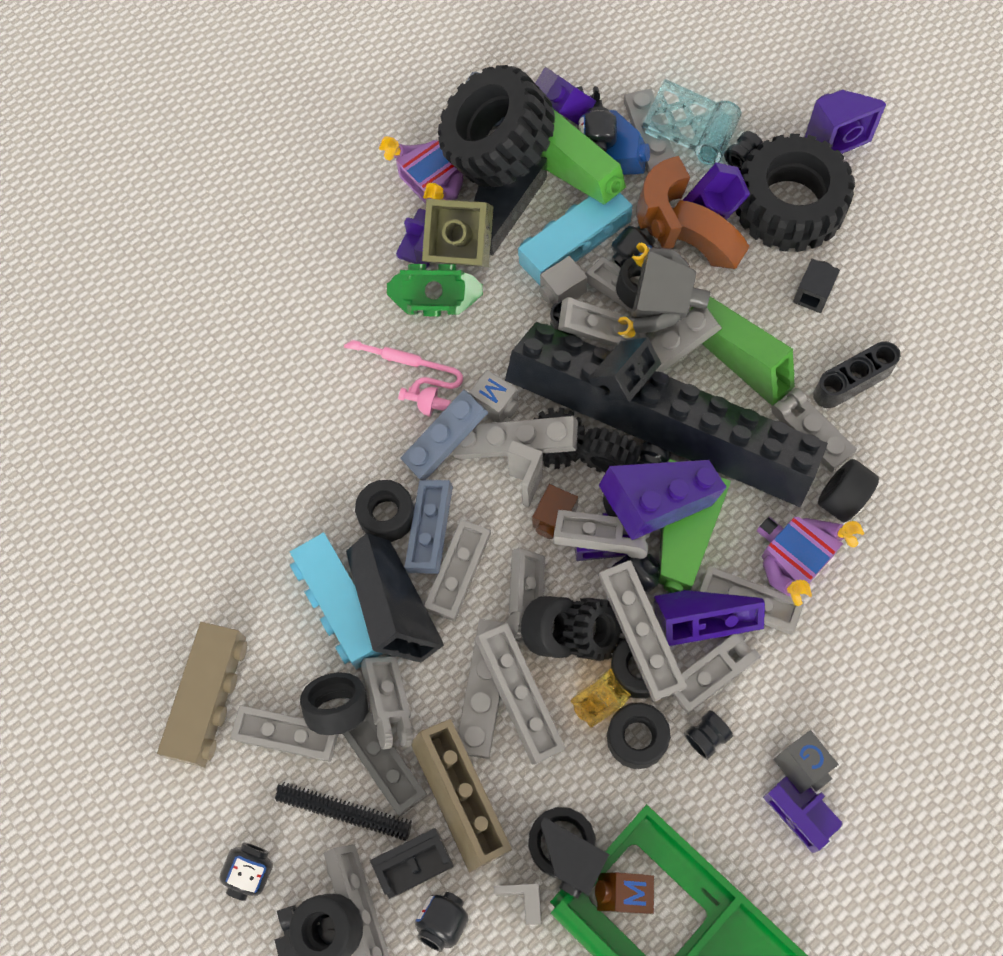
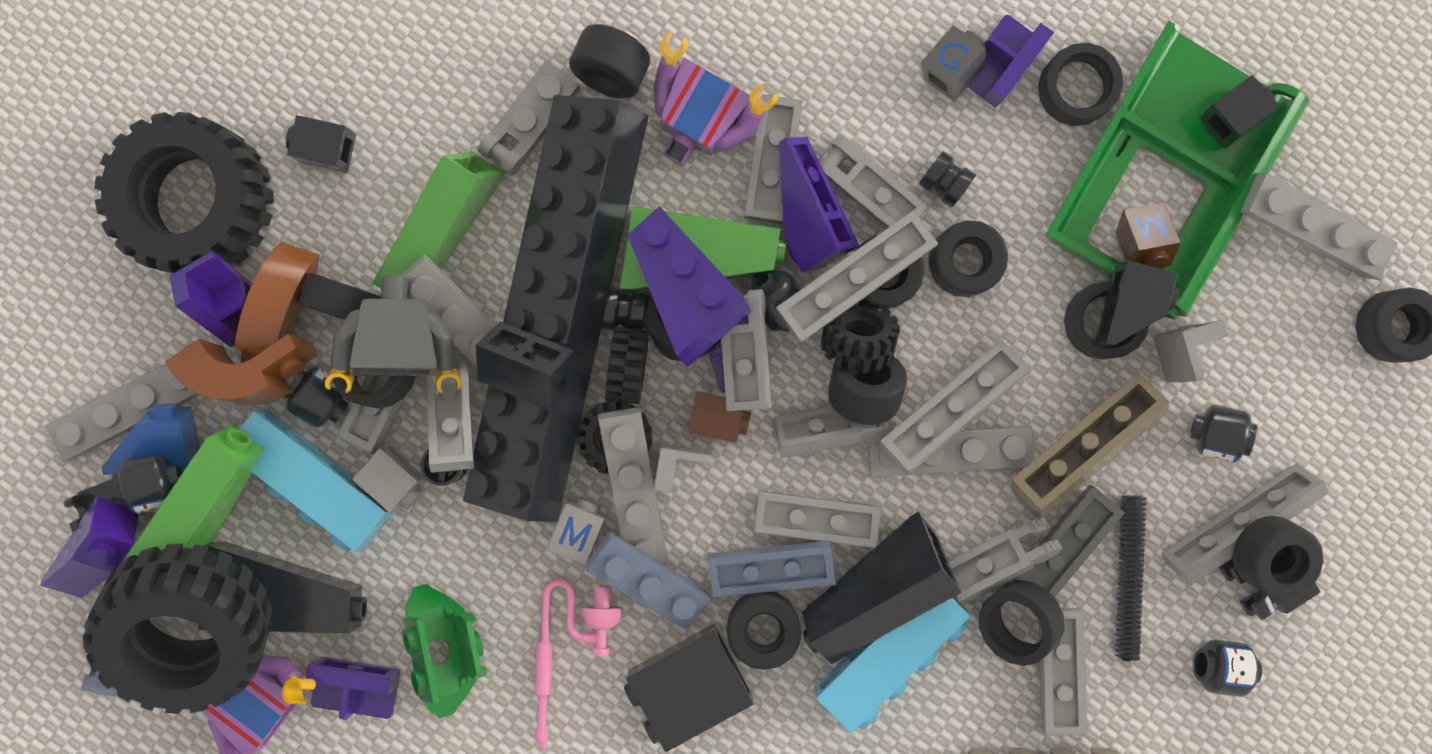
camera: 110 degrees left, 20 degrees up
(357, 448) = (688, 688): none -> black brick
(411, 863) = (1168, 484): black hinge -> none
(457, 232) = (359, 640): olive brick -> none
(590, 707) = (938, 311): clear yellow brick -> none
(706, 263) = (332, 296): none -> black tyre
(710, 136) = (99, 322): clear light blue piece -> none
(738, 152) = (127, 275): black wheel -> none
(797, 864) = (1101, 61): none -> black tyre
(845, 119) = (54, 145): dark purple slope -> none
(866, 365) = (429, 60): black beam -> none

